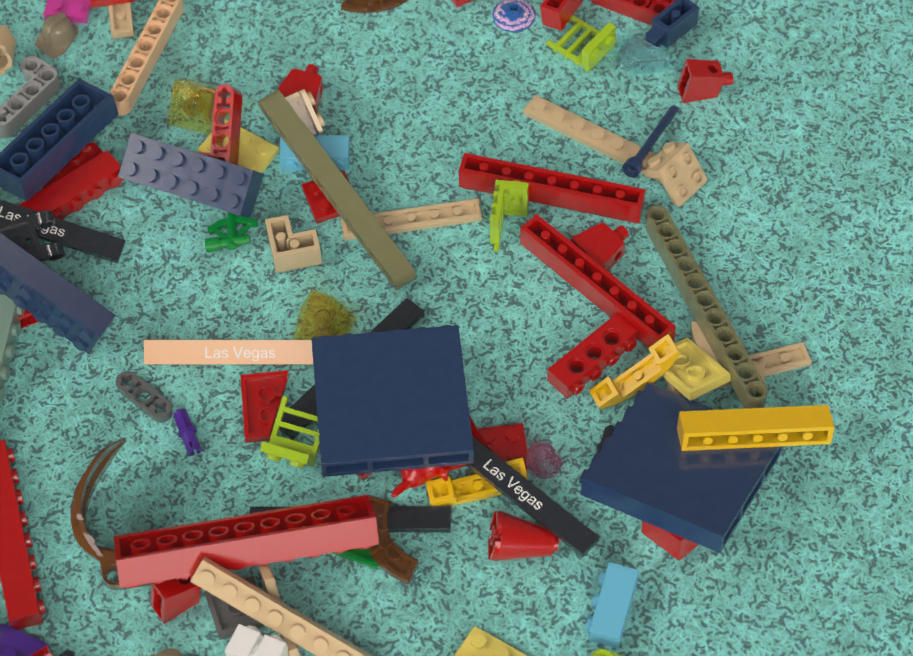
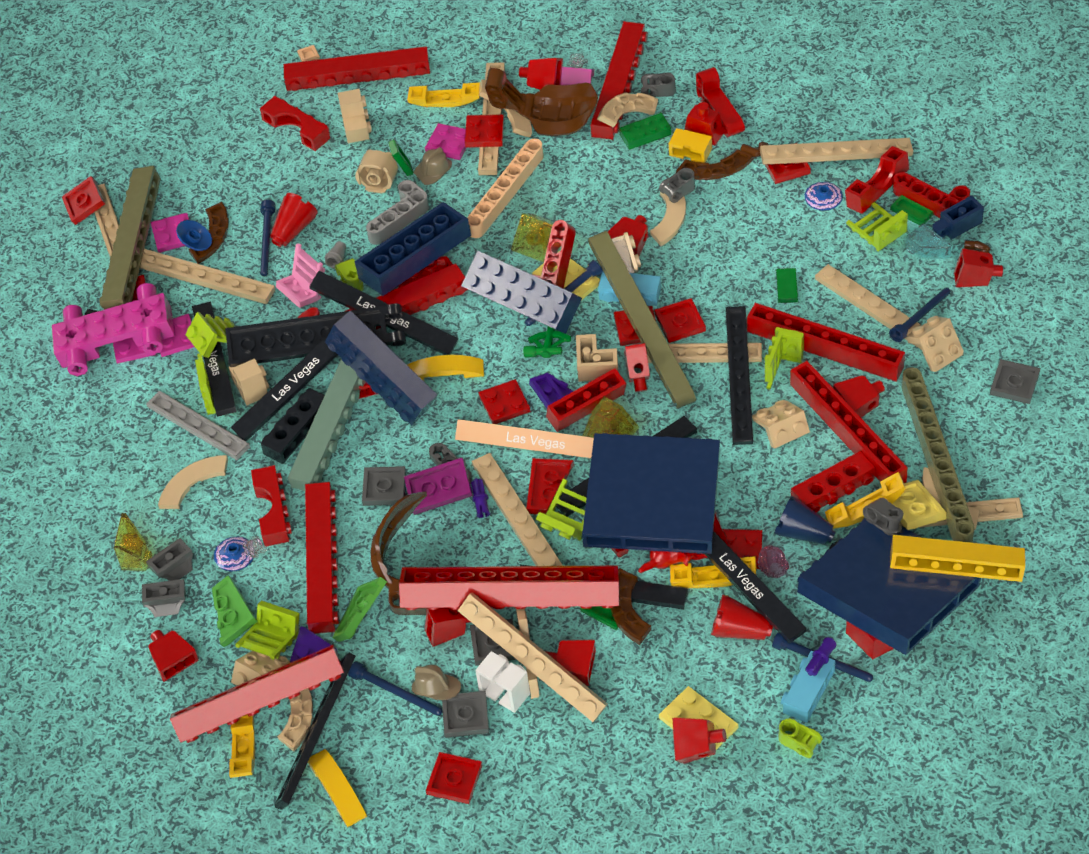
camera: 15 degrees right, 5 degrees down
(17, 30) = (400, 157): none -> green tile
(66, 591) = (357, 608): none -> bright green wing
(69, 433) = (383, 485): none -> dark grey plate
(118, 275) = (448, 365): none -> yellow slope
(139, 421) = (442, 483): none -> magenta plate
(193, 310) = (504, 402): none -> red plate
(233, 445) = (515, 512): none -> tan plate
(249, 290) = (549, 388): none -> dark purple wing
(268, 138) = (592, 270): none -> dark blue piece
(289, 295) = (584, 399): none -> red brick
(337, 613) = (576, 657): none -> red torso
(339, 236) = (637, 358): none -> torso
(348, 23) = (678, 185): none -> dark grey piece
(349, 58) = (671, 222): none -> tan tile
(380, 184) = (680, 320): none -> red plate
(460, 241) = (739, 376): none -> black tile
(493, 126) = (786, 285): none -> green tile
(521, 290) = (782, 422): none -> tan bracket
(569, 409) = (804, 524): none -> dark blue cone
(570, 556) = (780, 643): none -> dark blue piece
(622, 569) = (820, 656): none -> dark purple axle
(624, 22) = (915, 211): none -> green tile
(660, 387) = (884, 516): none -> dark grey piece
(696, 52) = (977, 246): none -> reddish brown arm
(771, 205) = (1015, 381): none -> dark grey plate

